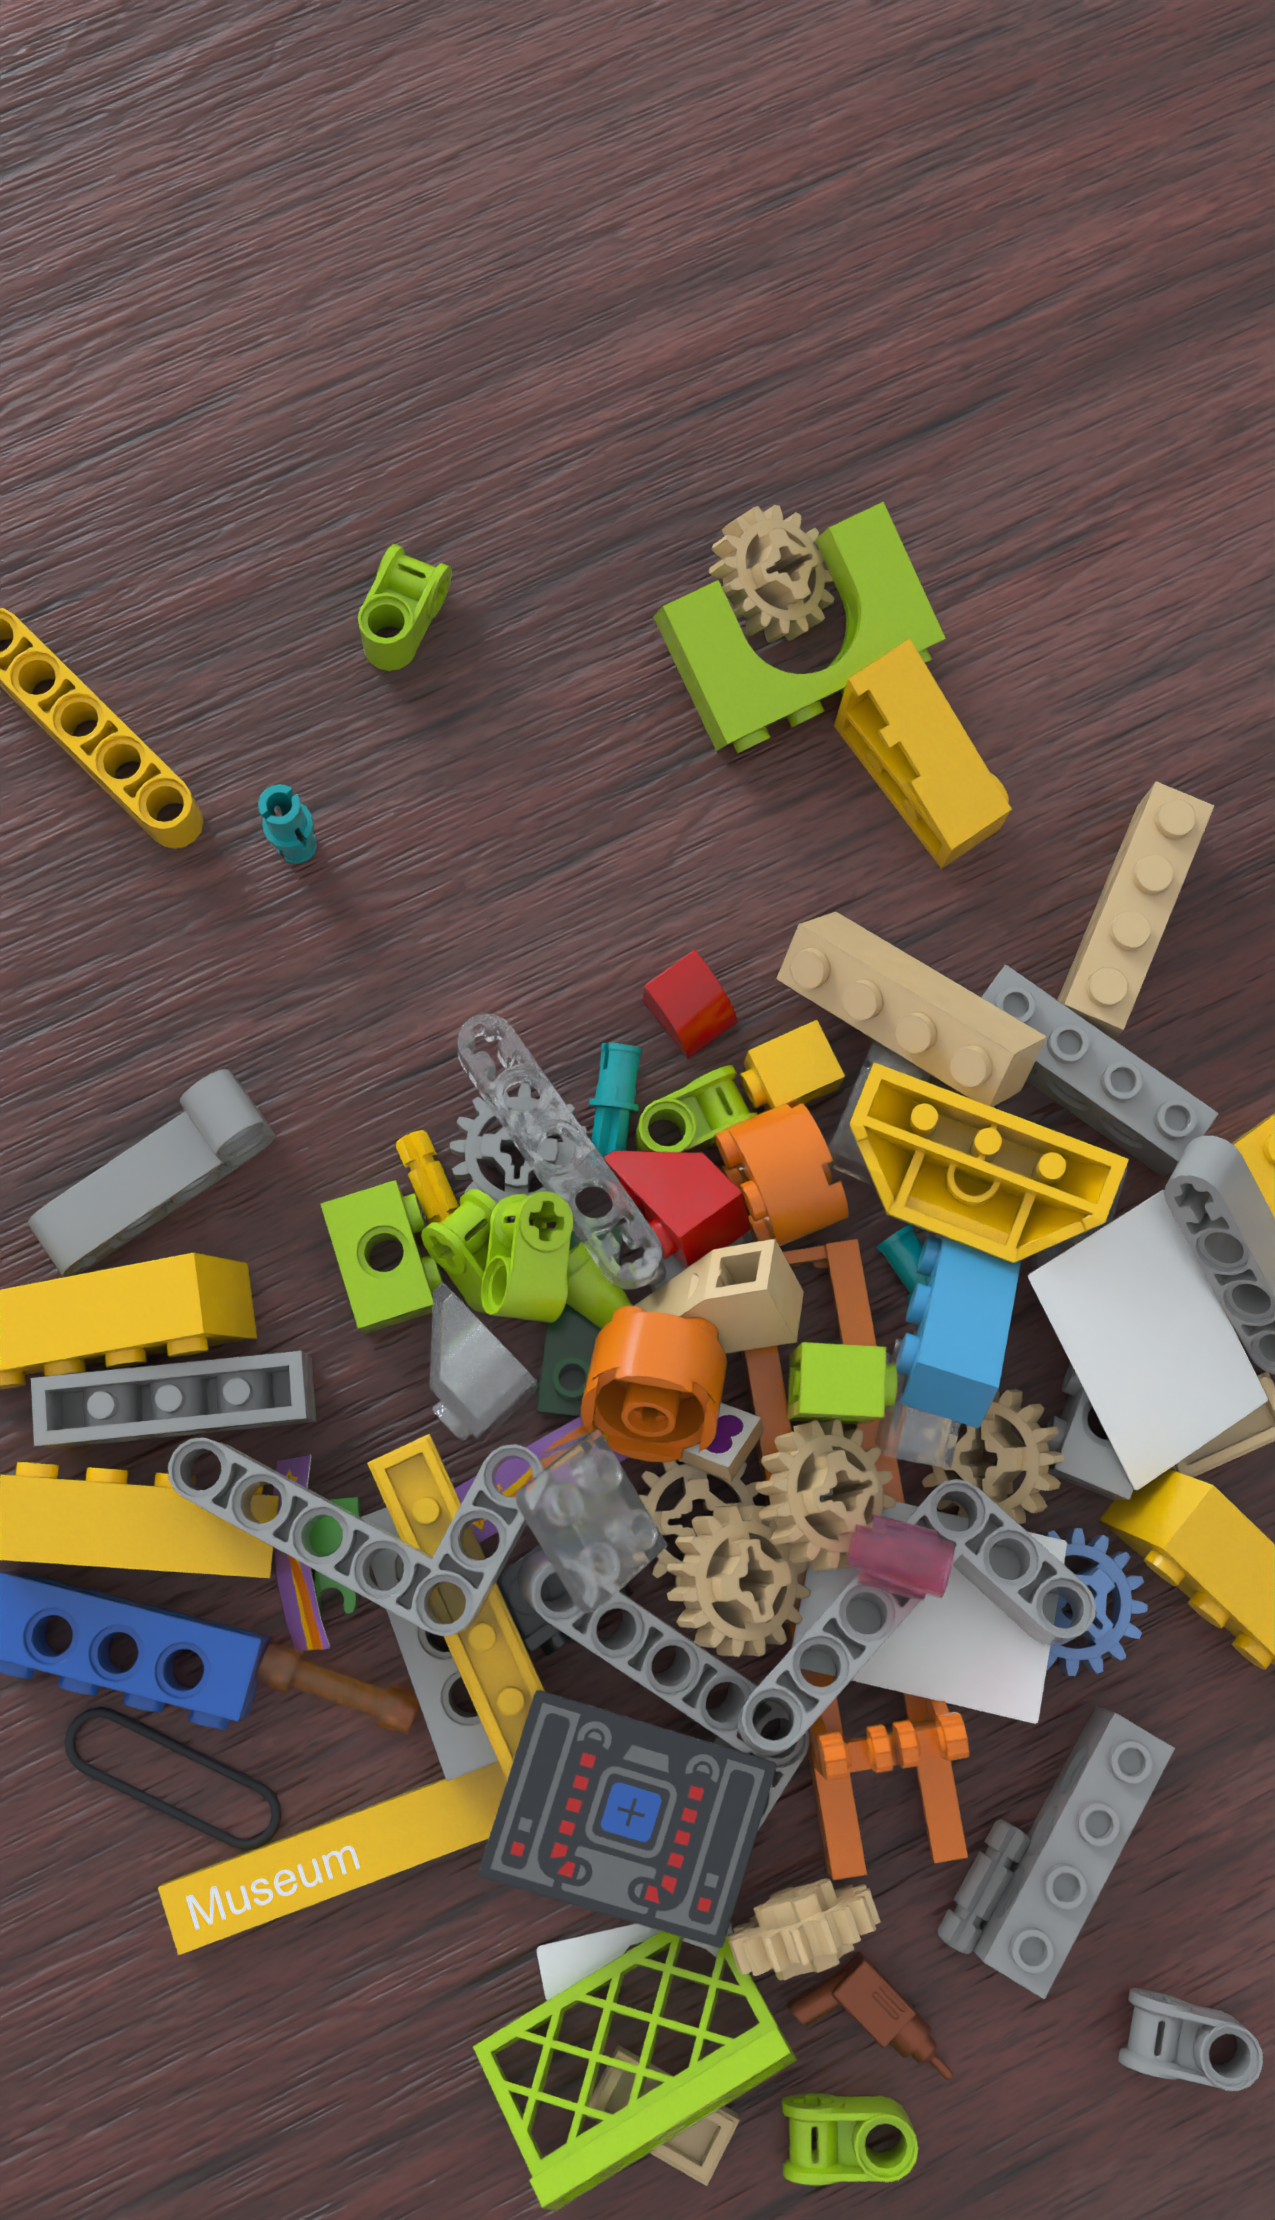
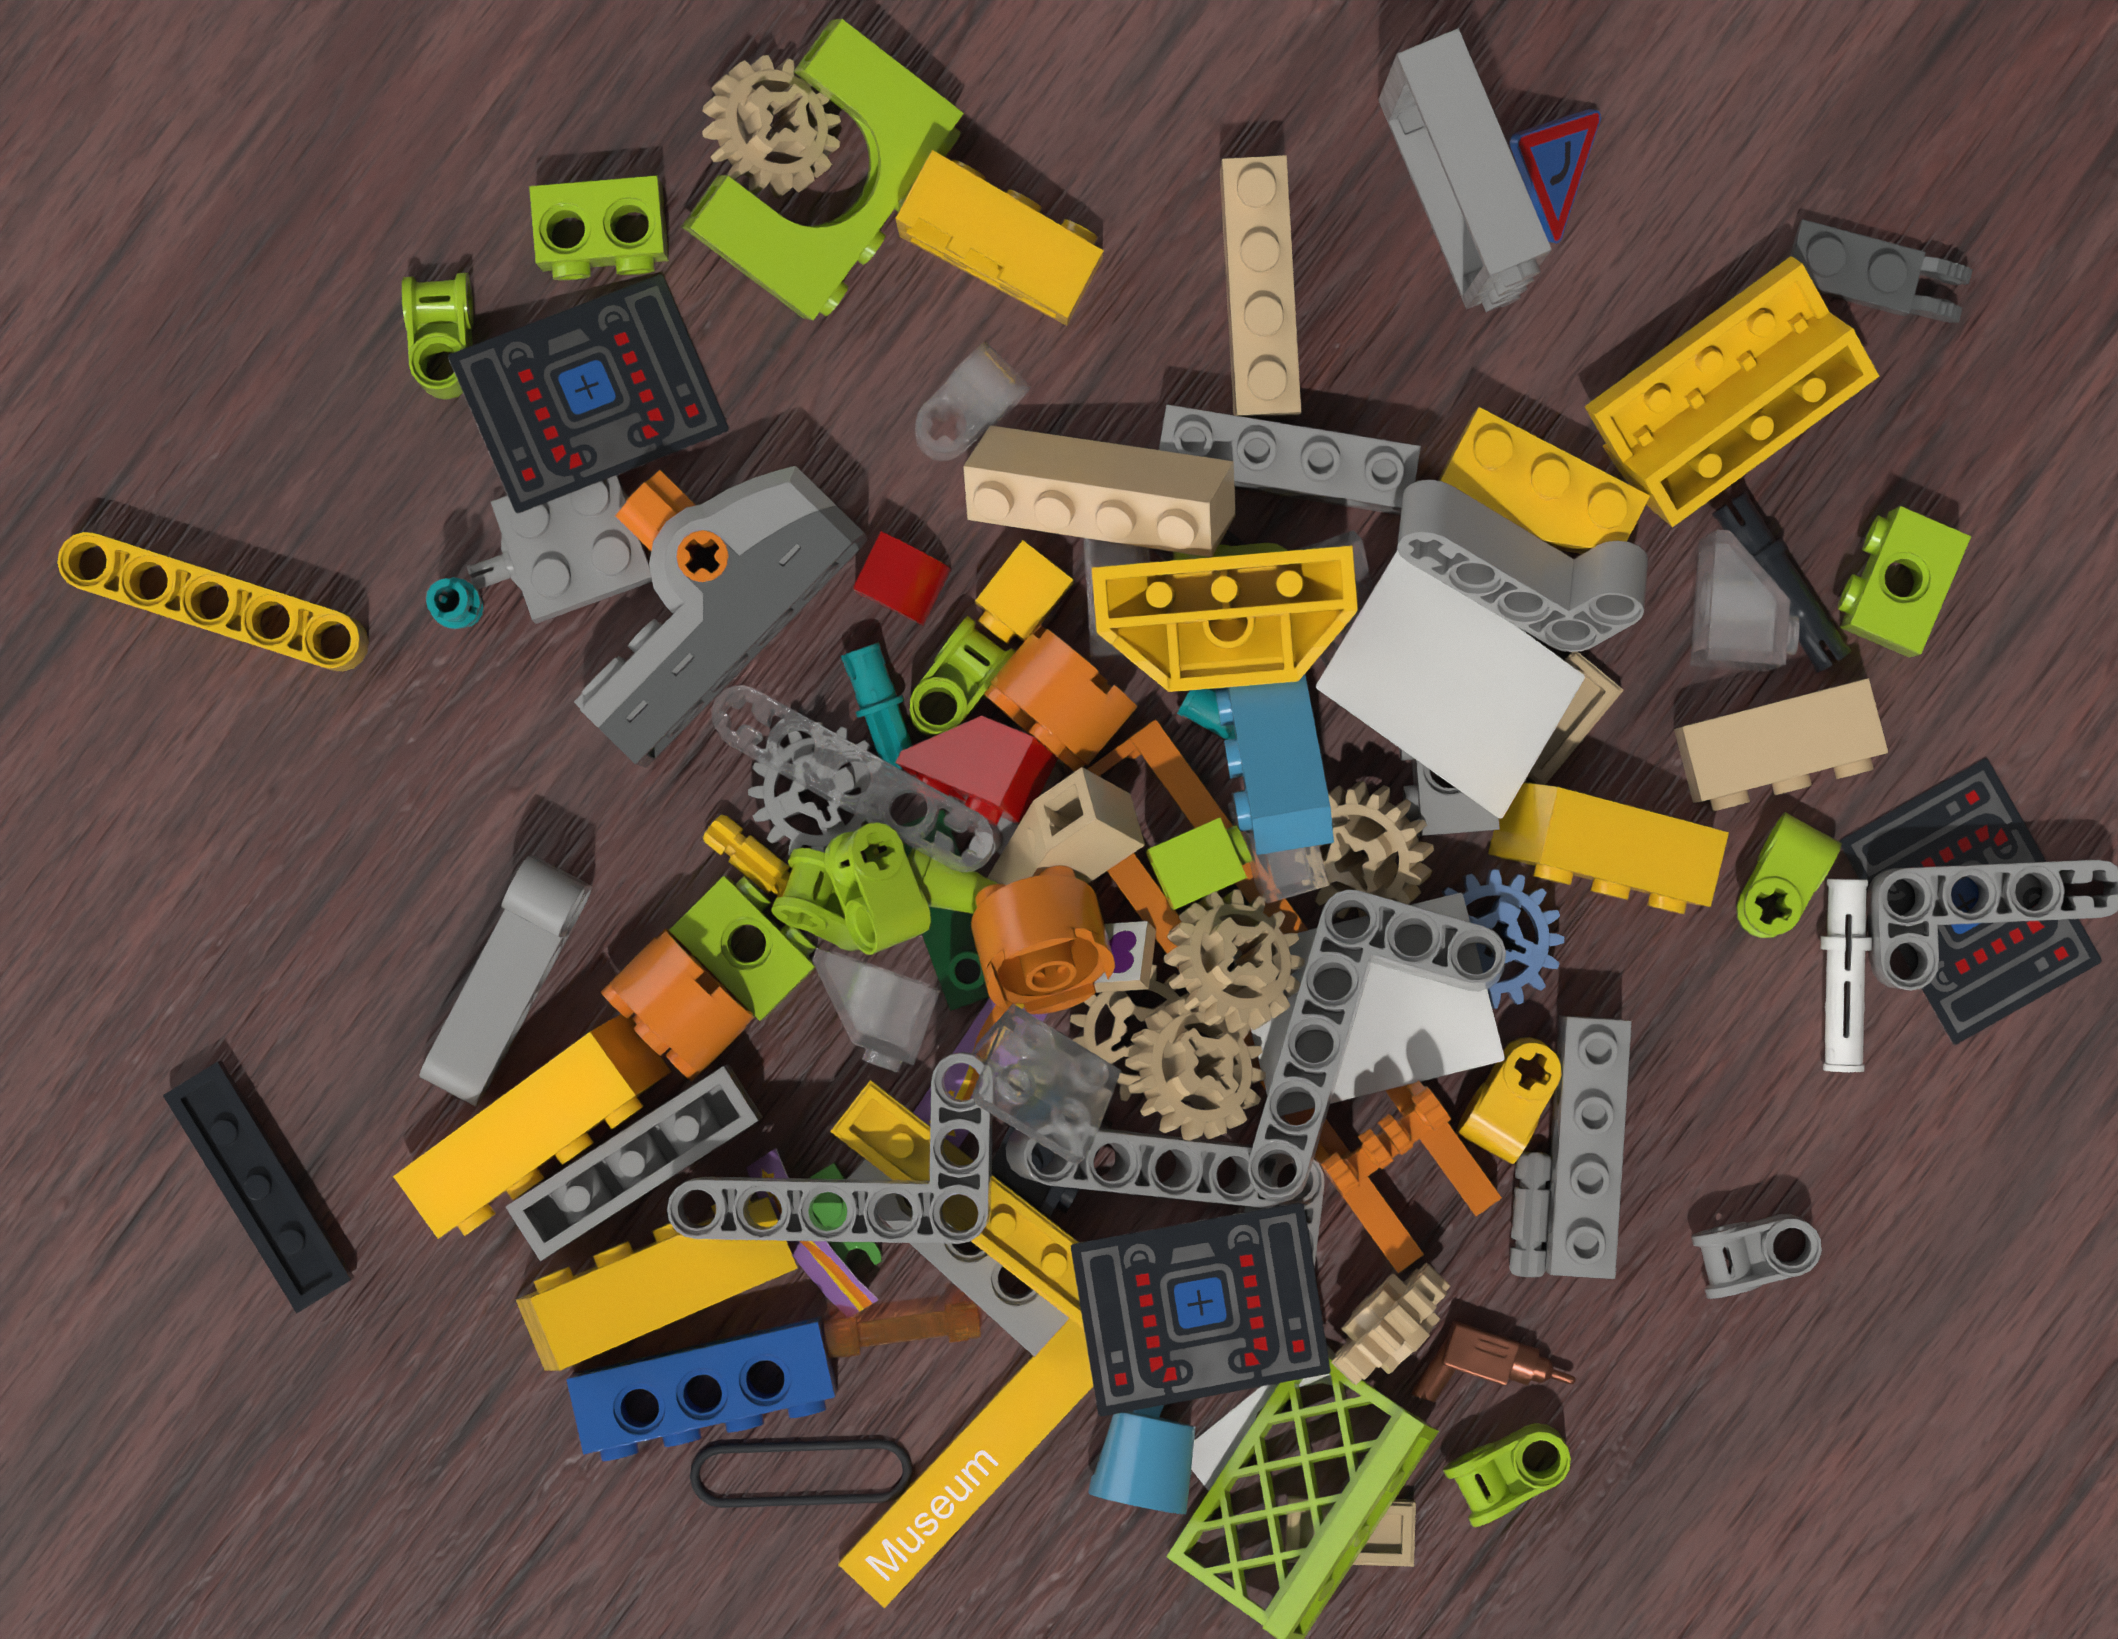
camera: 25 degrees left, 10 degrees up
(291, 1275) = (677, 1004): none -> orange brick
(420, 833) = (566, 551): none -> light grey plate
(499, 714) = (588, 393): none -> black sticker
(499, 1945) = (1145, 1461): none -> dark azure hat
(542, 930) = (775, 553): none -> piece
(592, 571) = (600, 208): none -> lime brick
(831, 881) = (975, 395): none -> clear piece
(900, 1558) = (1318, 985): clear pink brick -> none
(1013, 1771) = (1506, 1111): none -> yellow piece

